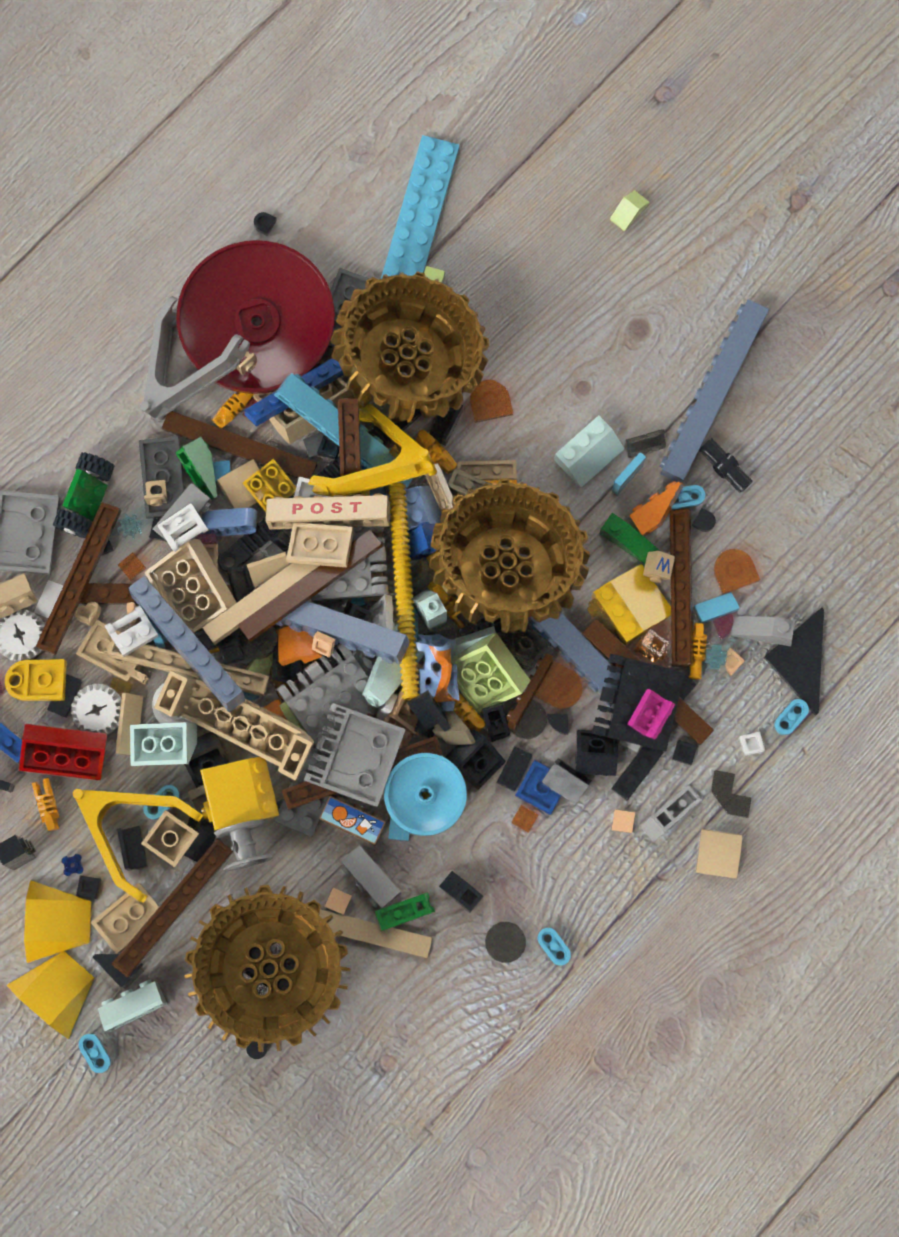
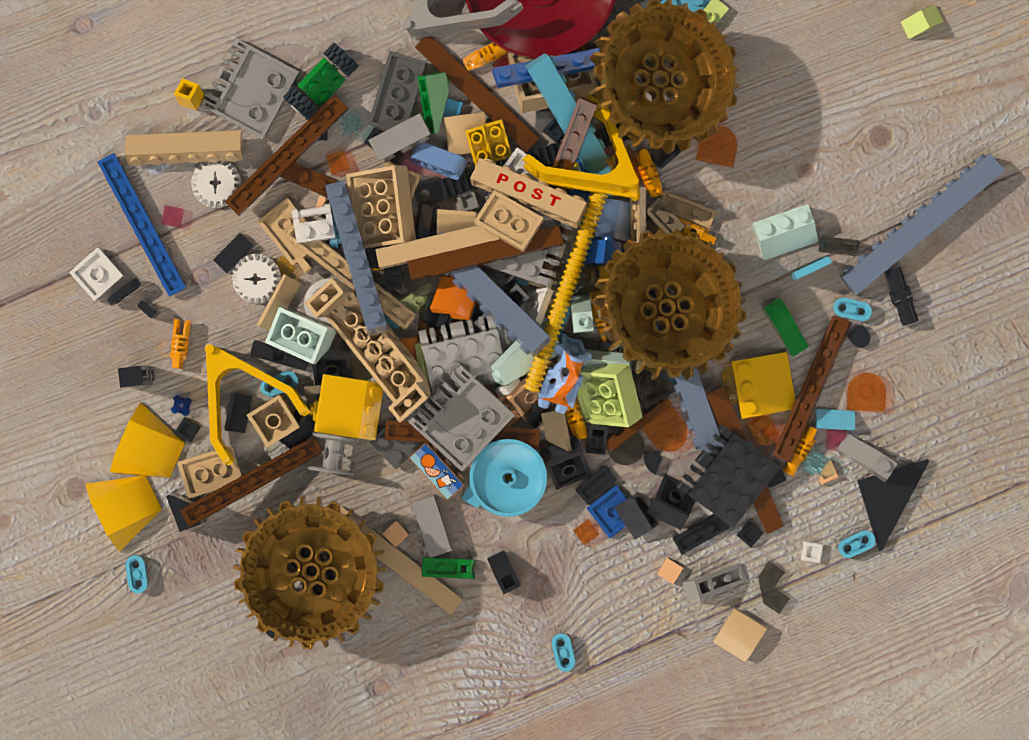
camera: 25 degrees right, 10 degrees up
(38, 680) = (216, 230): yellow tile -> none
(48, 599) = (254, 160): white sticker -> none
(62, 752) = (211, 304): red slope -> none
(88, 614) = (283, 189): tan tile -> none
(131, 1005) = (183, 548): light aqua slope -> none
(137, 775) = (267, 352): none -> black piece
(155, 499) = (382, 113): tan bracket -> none
(180, 523) = (392, 147): white plate -> none
(248, 364) = (514, 26): tan bracket -> none
(281, 539) = (478, 197): black tile -> none
(323, 644) = (474, 311): light nougat tile -> none
(429, 711) = (542, 408): black panel -> none
(505, 942) = (523, 630): clear smoke tile -> none
(651, 714) = (733, 493): dark pink bracket -> none
(653, 514) = (816, 314): orange slope -> none
(658, 566) = (800, 362): tan brick -> none

